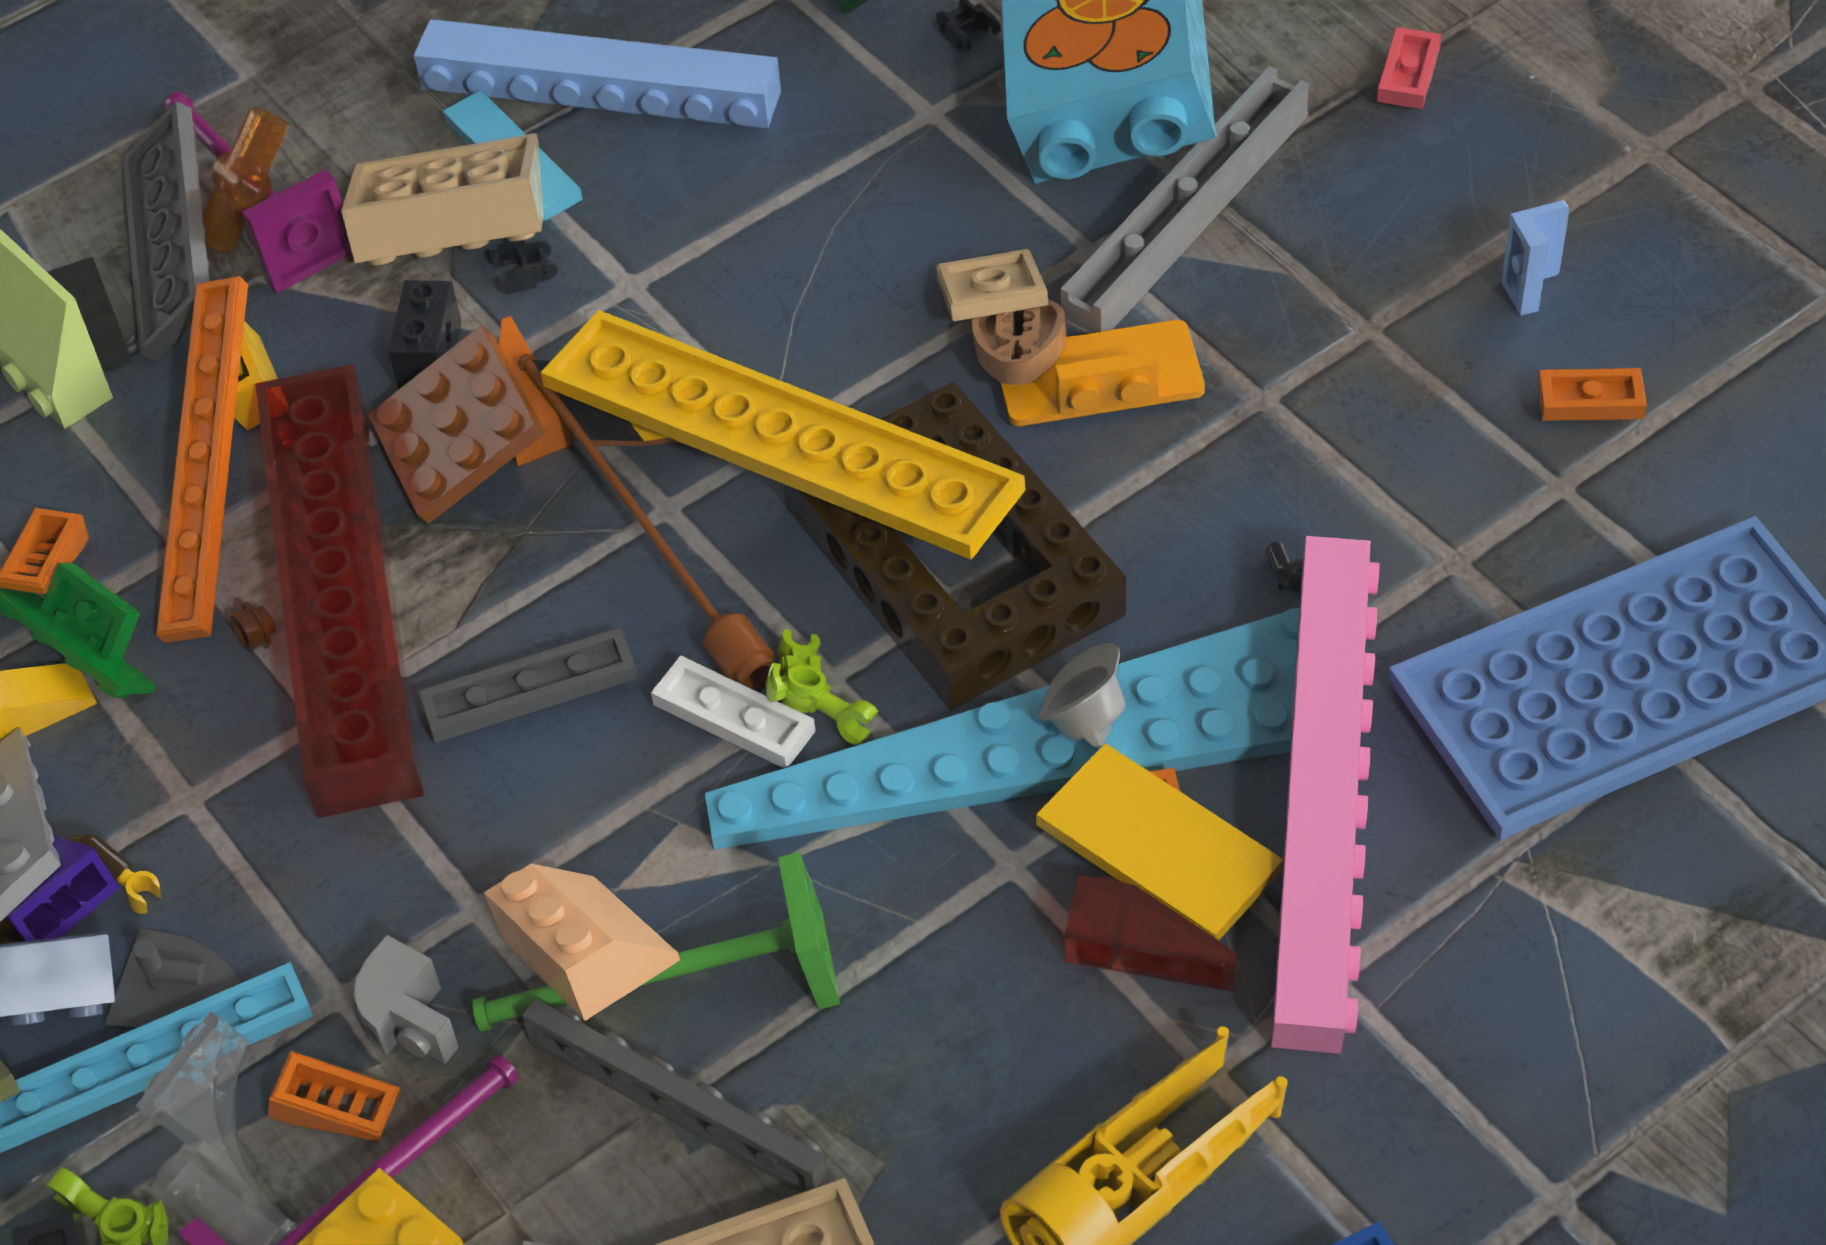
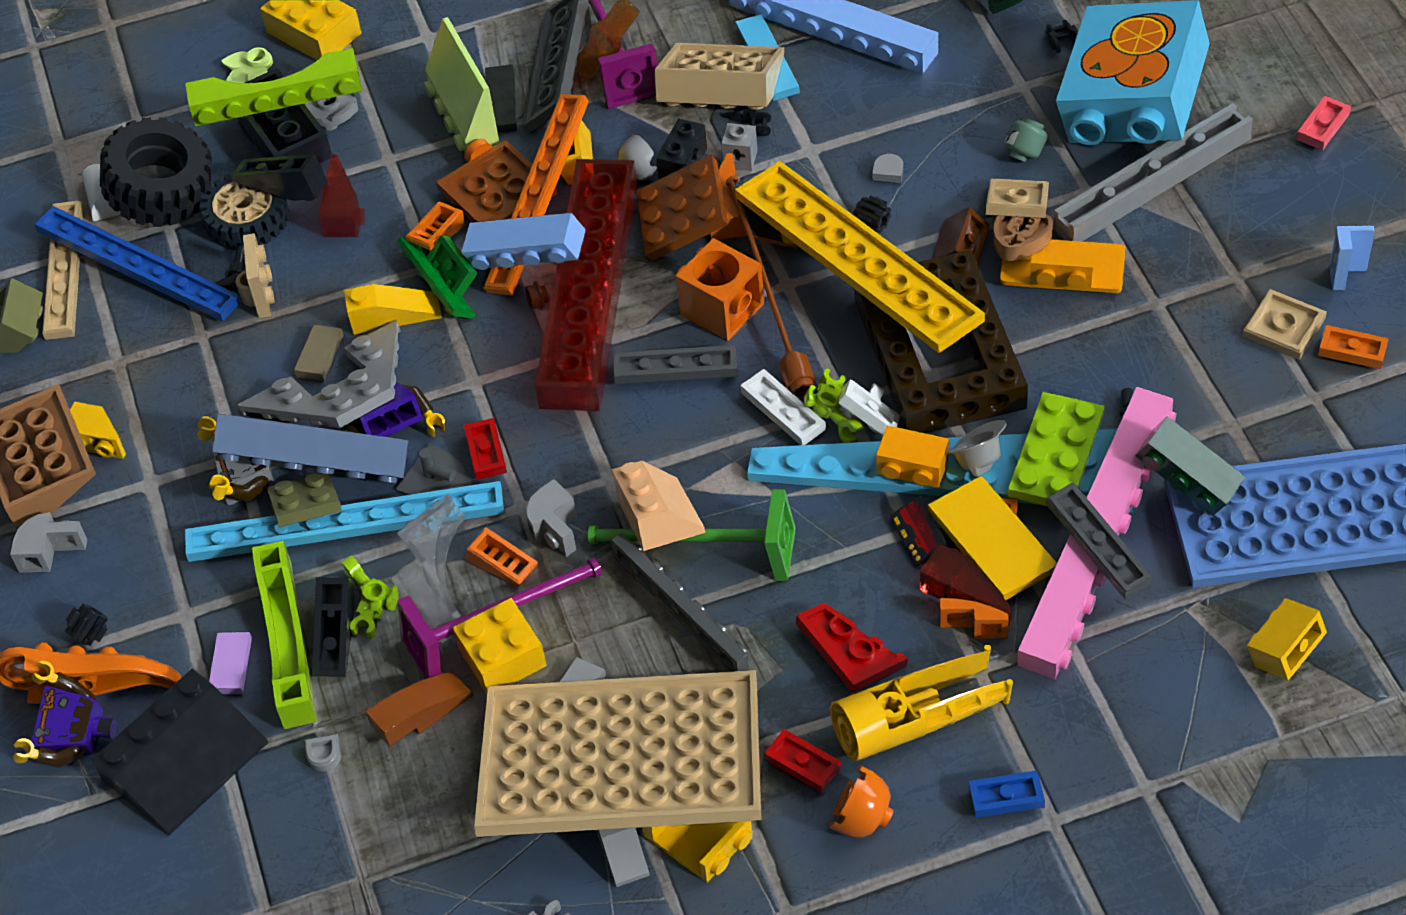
camera: 20 degrees right, 0 degrees up
(79, 413) = (476, 148): none -> orange tile
(114, 465) = (488, 184): none -> dark orange plate
(207, 540) = (523, 241): none -> light blue brick
(245, 912) = (485, 448): none -> red plate
(354, 345) = (638, 150): none -> light grey hair
(518, 292) = (743, 140): none -> light grey brick
(565, 541) = (720, 289): none -> orange brick
(768, 285) = (888, 168): none -> light grey tile
(772, 357) = (873, 213): none -> black gear
(880, 678) = (868, 406): none -> white plate
(921, 362) = (962, 233): none -> reddish brown panel
(972, 191) = (1025, 139): none -> sand green head
(982, 740) = (912, 456): none -> light orange brick
(991, 1101) = (846, 649): none -> red wing
(1029, 862) = (917, 530): none -> slope
(1193, 983) = (986, 620): none -> orange slope
(1208, 674) = (1055, 447): none -> lime plate
(1341, 803) = (1099, 541): none -> dark grey tile
(1437, 643) = (1190, 466): none -> brick
(1472, 384) = (1284, 324): none -> tan tile
(1686, 885) = (1286, 638): none -> yellow brick

